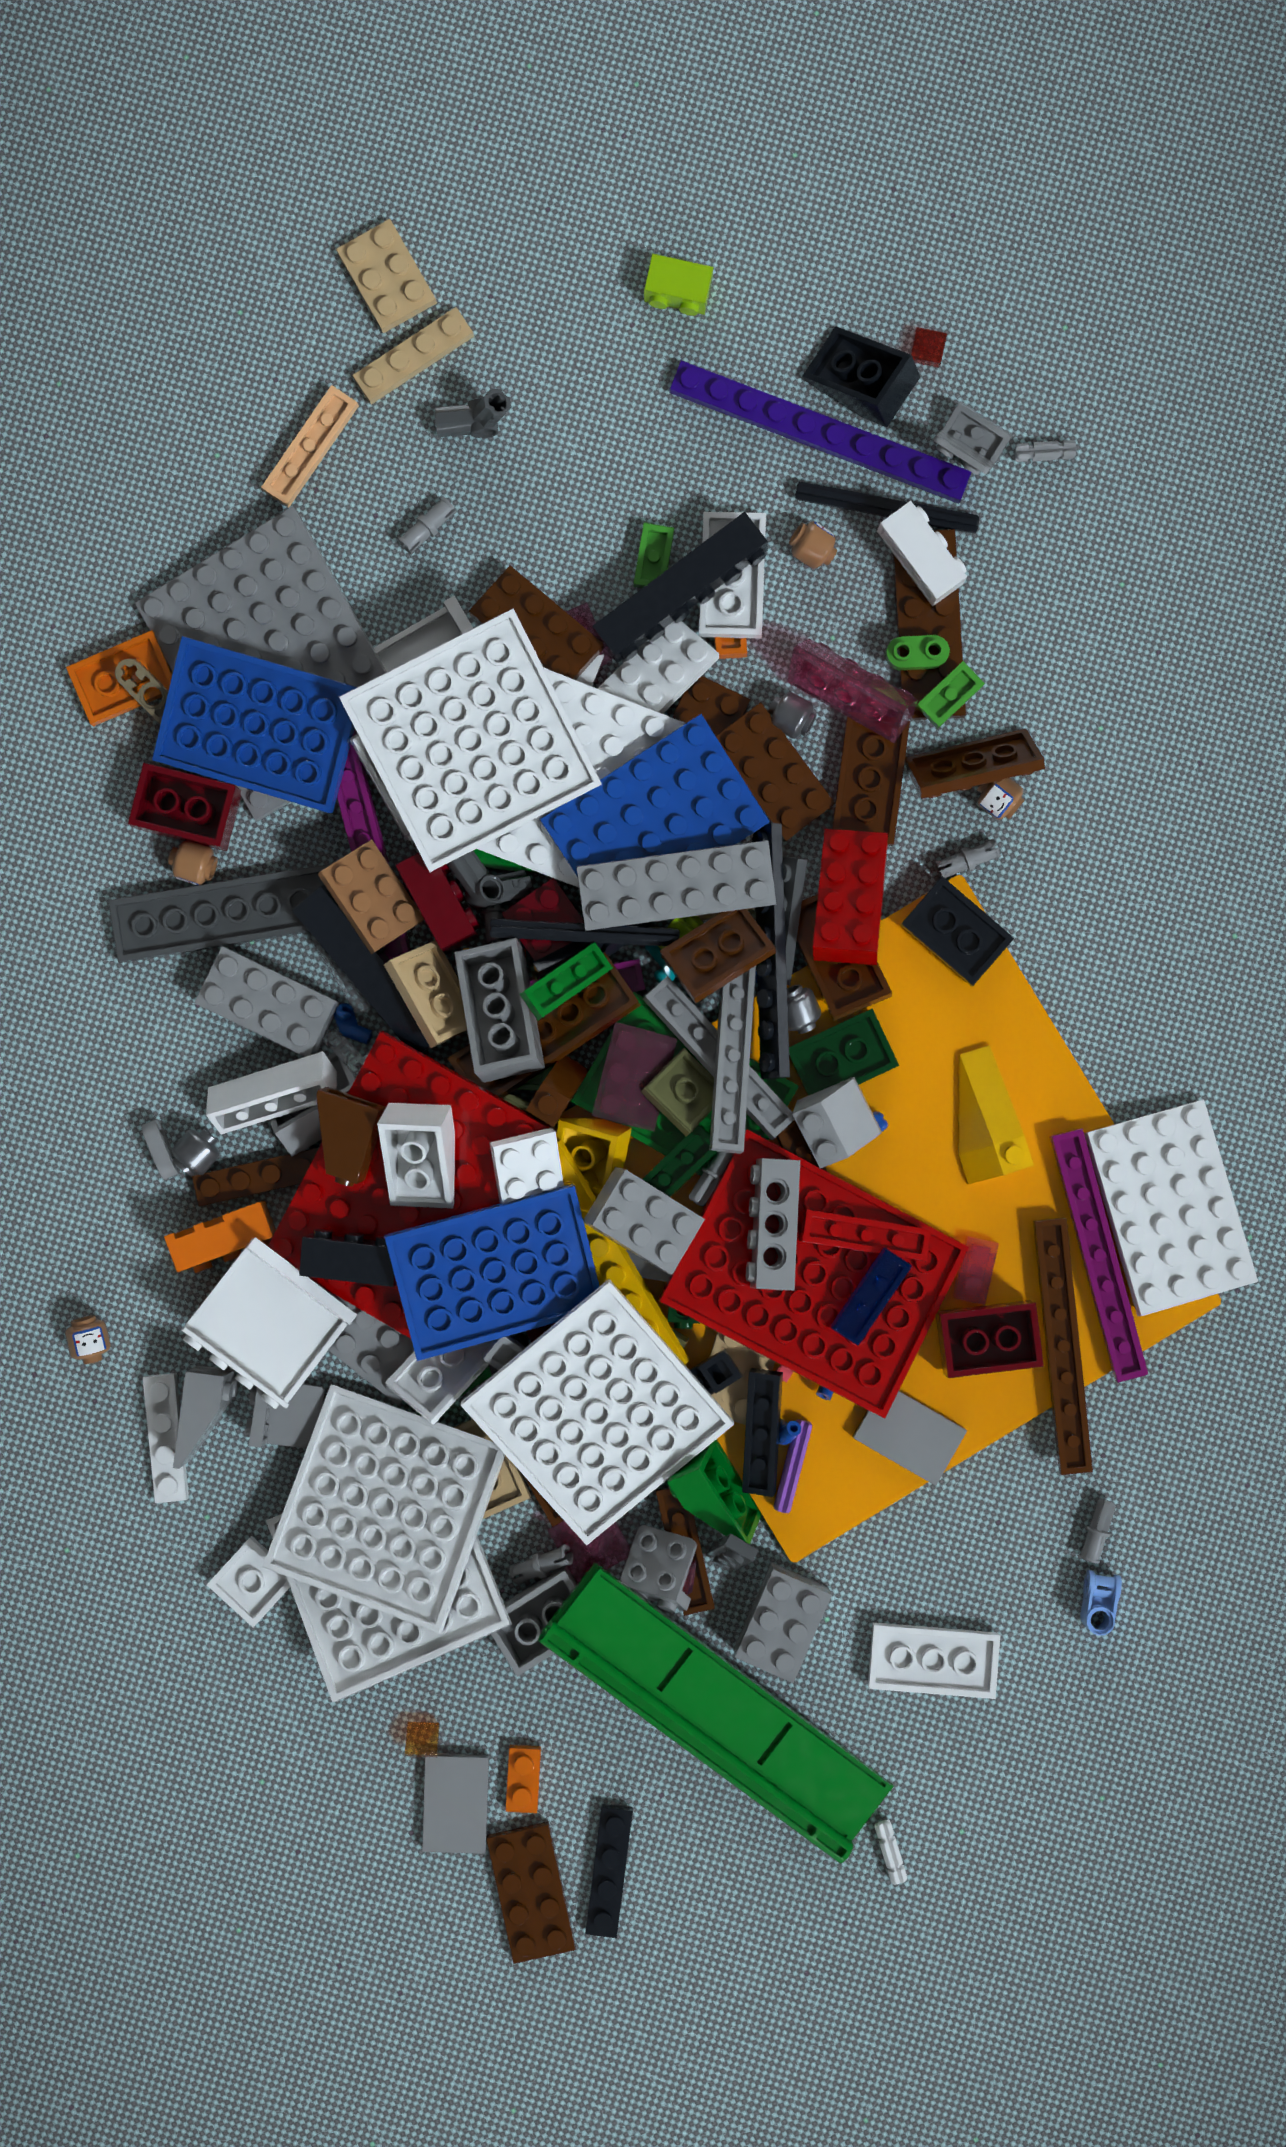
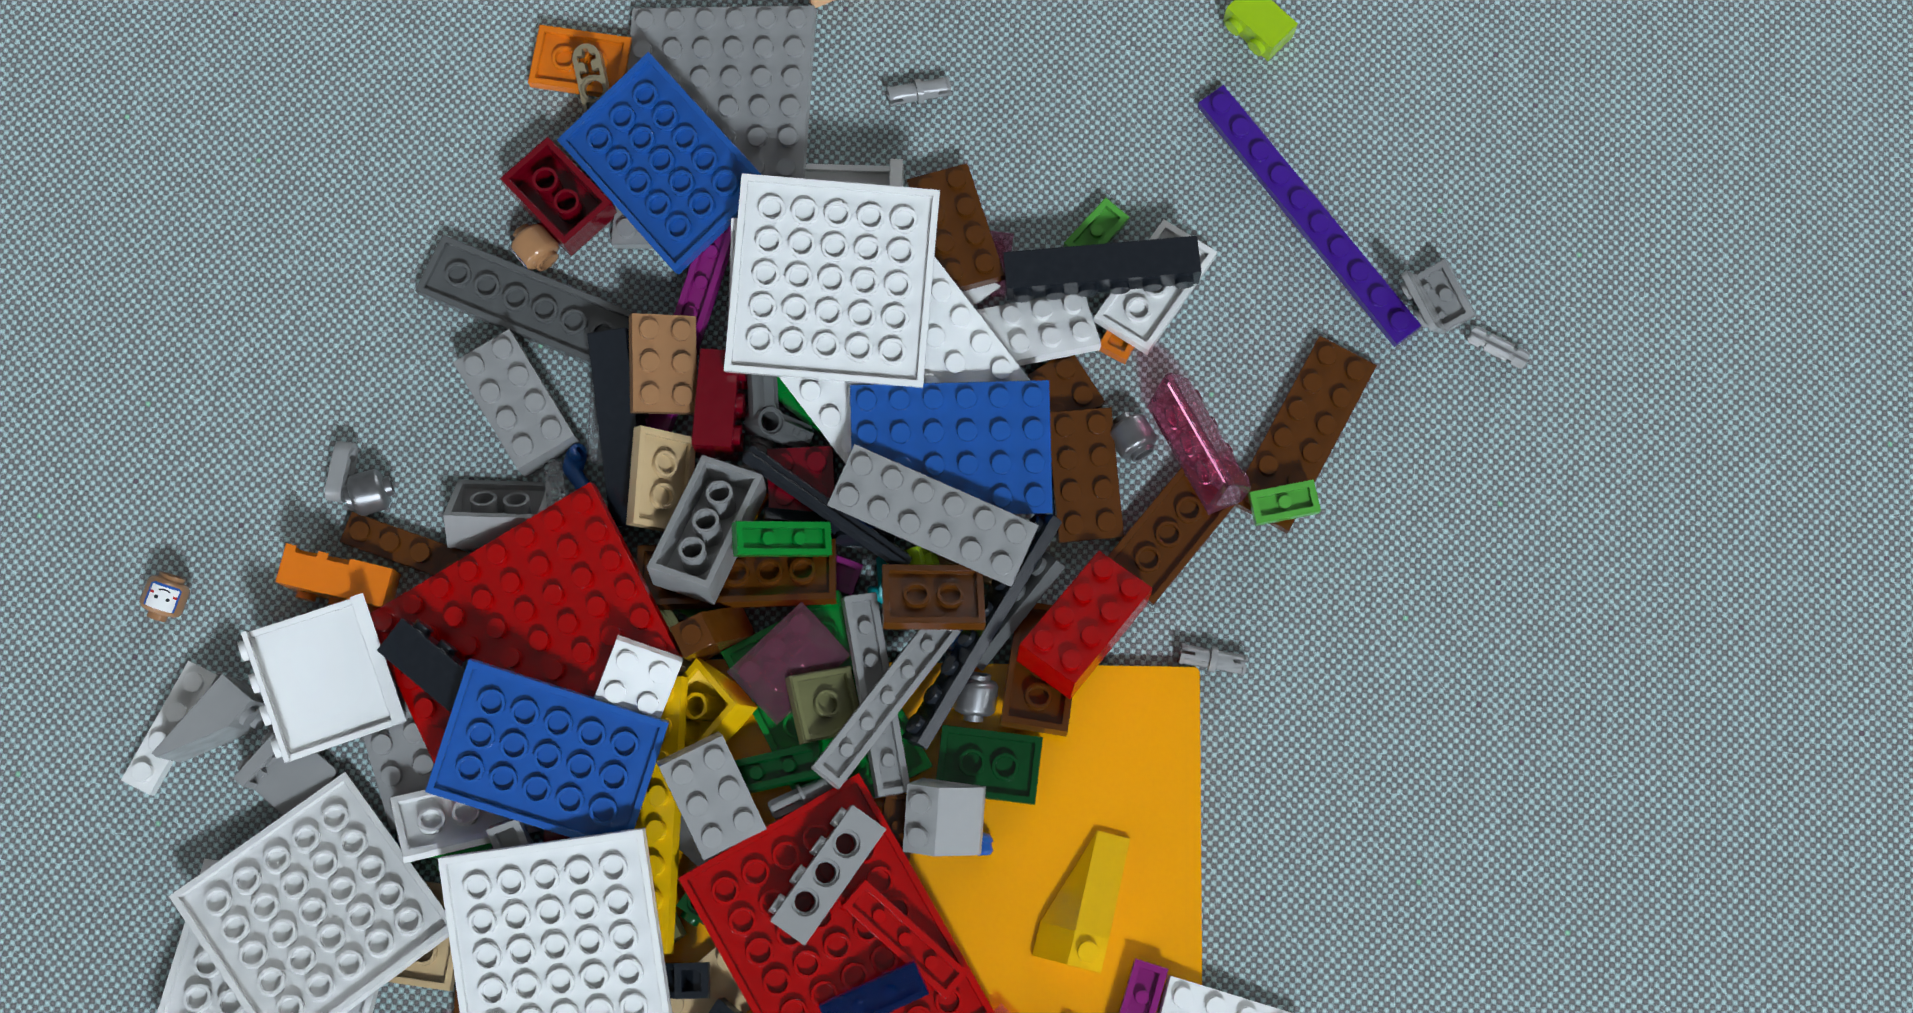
camera: 30 degrees right, 10 degrees down
(247, 1585) = (147, 910): white plate -> none
(269, 1093) = (466, 480): white brick -> none
(347, 1134) = (502, 552): reddish brown slope -> none
(418, 1154) = (550, 607): white slope -> none
(477, 418) = (1016, 29): dark grey piece -> none
(813, 544) = (1242, 303): medium nougat head -> none
(863, 375) = (1375, 189): black slope -> none
(882, 506) = (1328, 312): black axle -> none
(918, 652) = (1277, 450): bright green plate -> none
(922, 552) = (1334, 365): white brick -> none
(928, 347) = (1446, 199): clear red plate -> none
(957, 931) = (1162, 716): black plate -> none
(974, 763) = (1269, 576): reddish brown plate -> none
(1001, 798) = (1276, 620): head -> none

